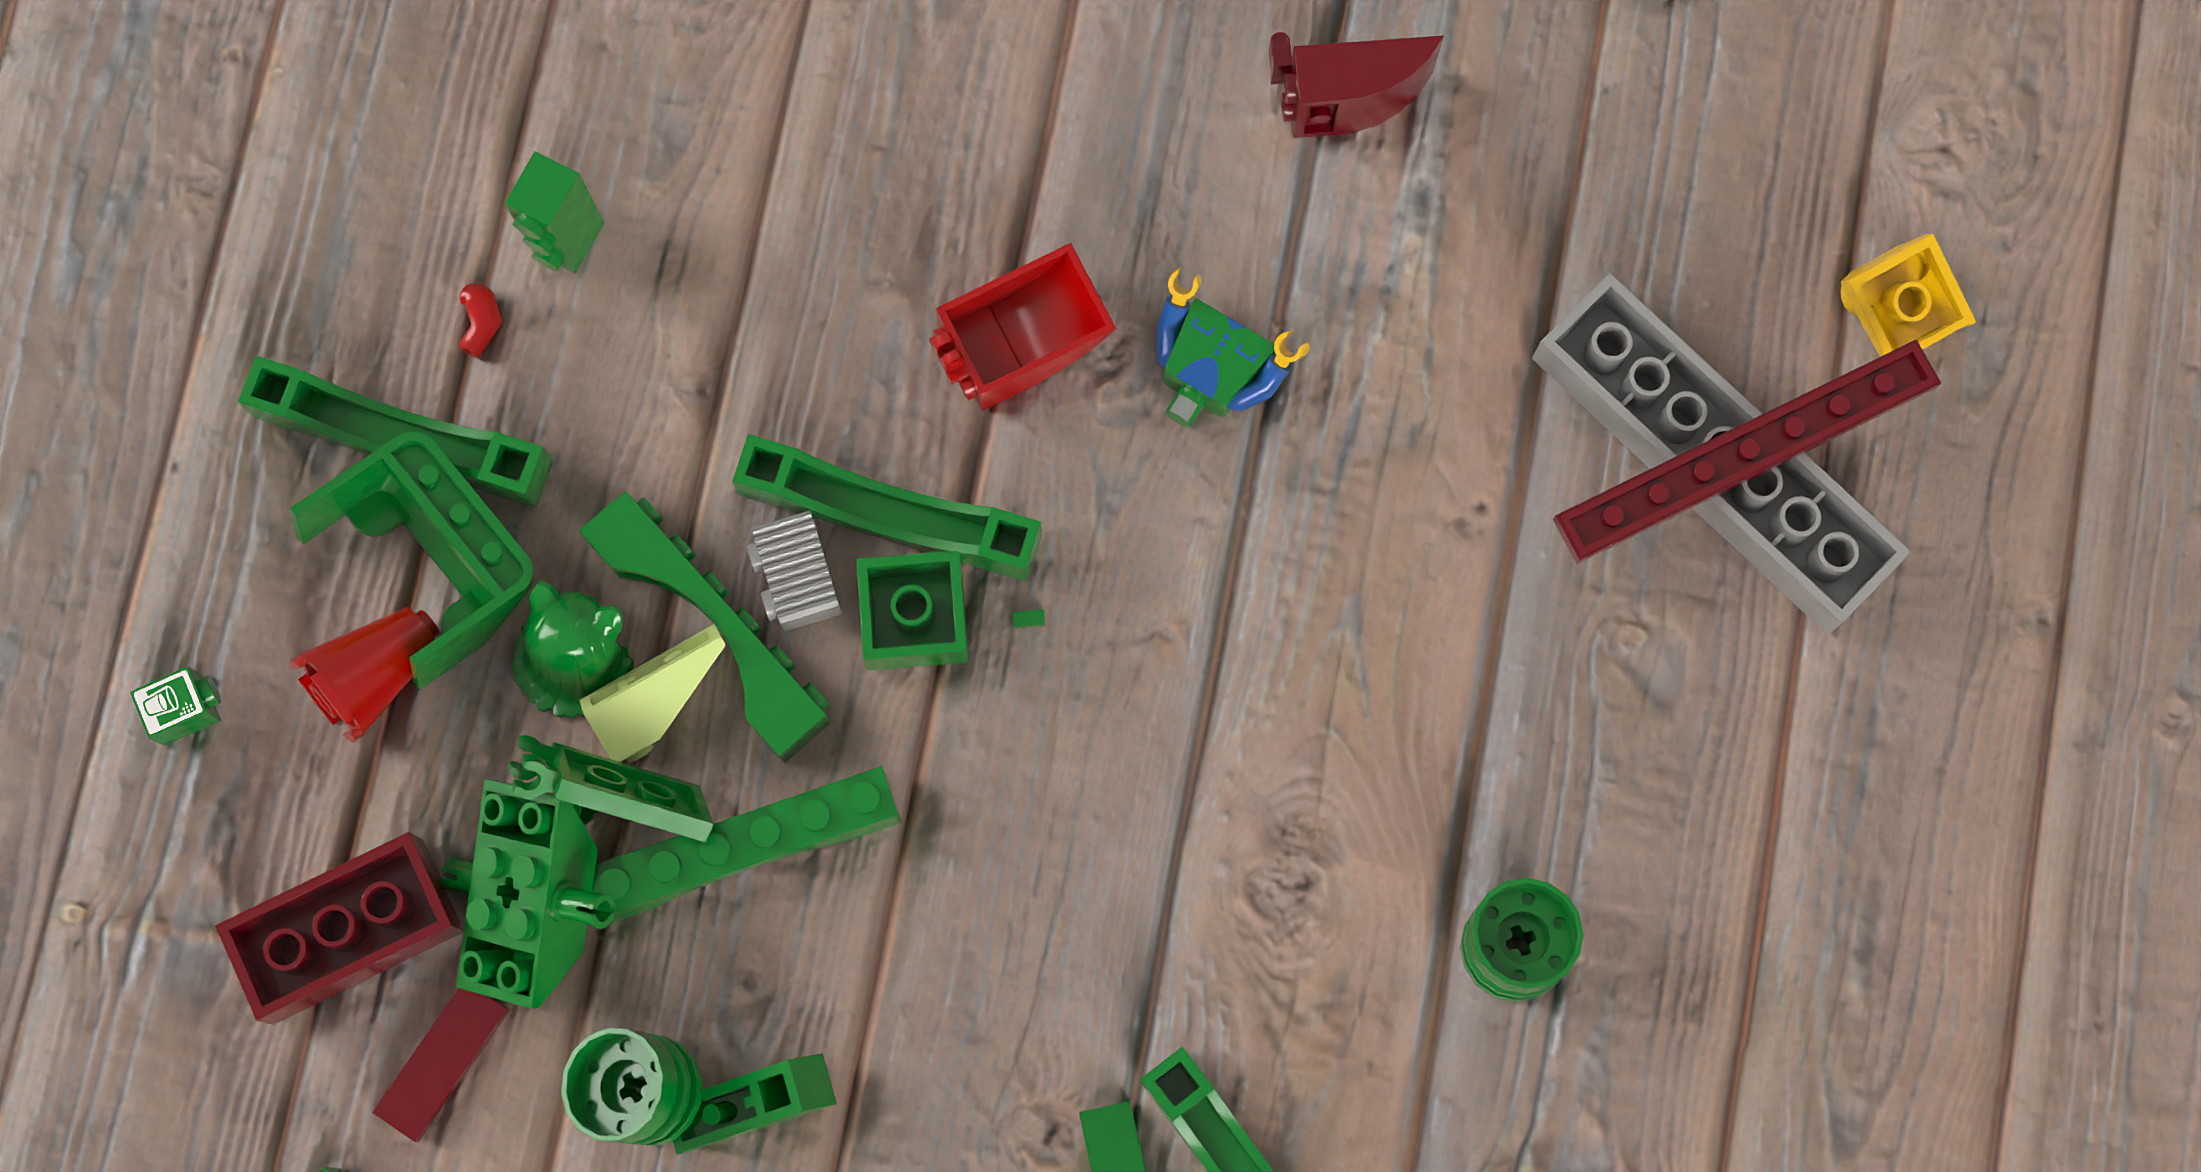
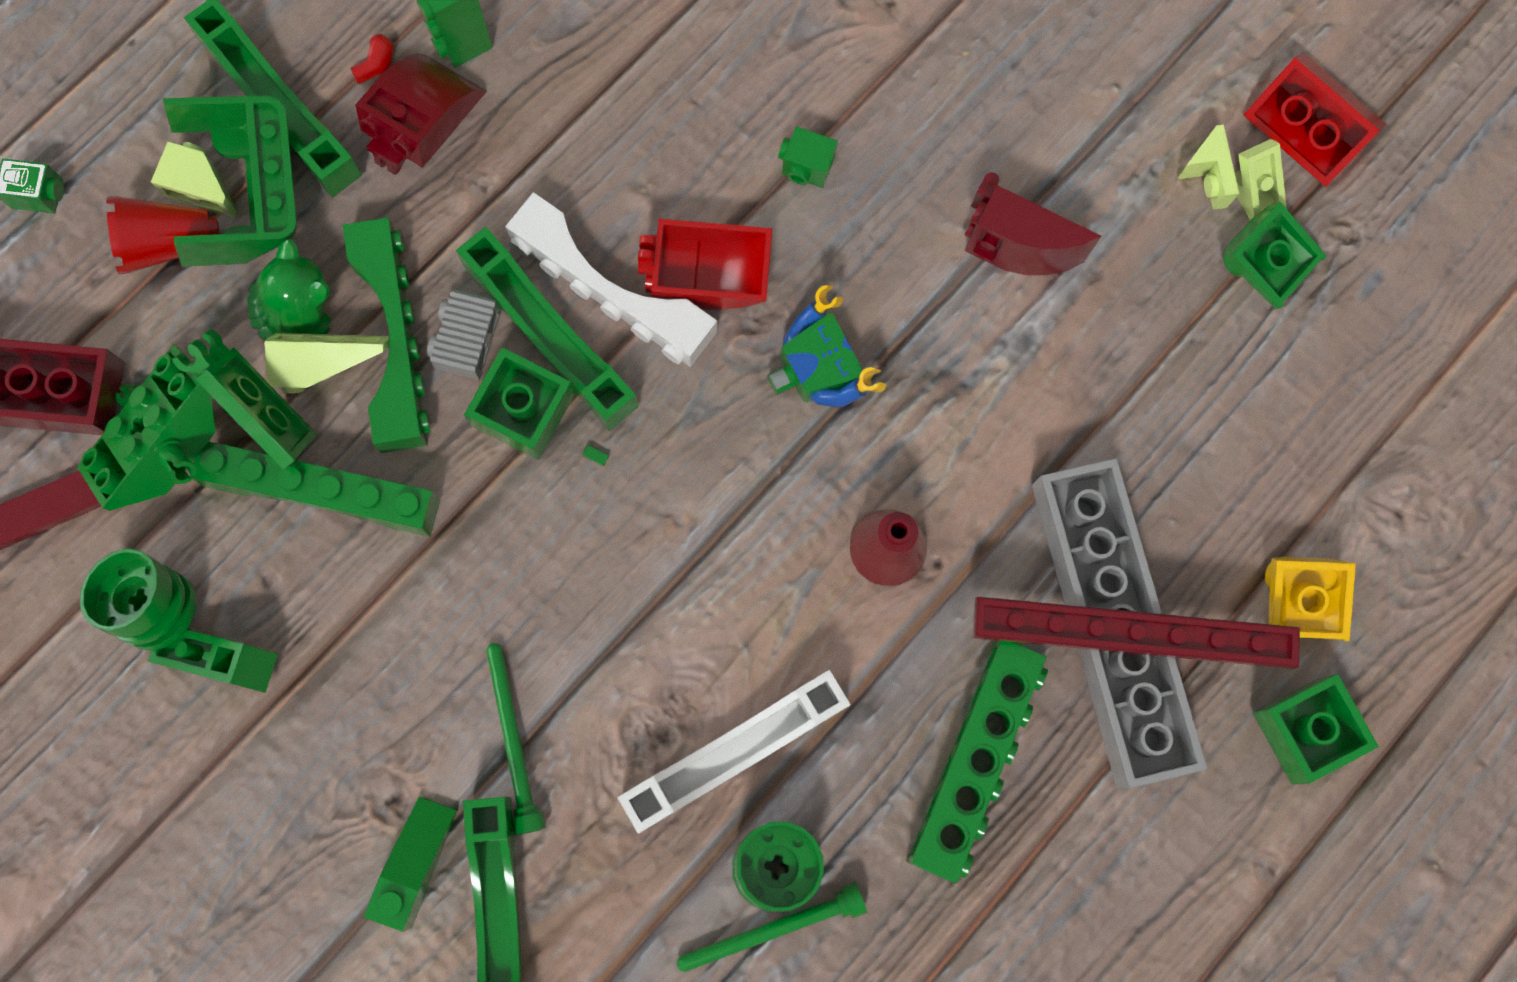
camera: 25 degrees right, 0 degrees up
(362, 583) = (191, 178): none -> yellowish green slope
(571, 350) = (414, 110): none -> dark red piece
(1027, 418) = (673, 324): none -> white arch
(1053, 136) = (807, 157): none -> green brick
(1212, 1057) = (527, 815): none -> green piece
(1395, 846) = (733, 752): none -> white arch
(1418, 522) = (888, 547): none -> dark red cone
(1616, 934) = (846, 903): none -> green piece
(1667, 823) = (928, 850): none -> green brick
(1997, 440) = (1315, 730): none -> green brick

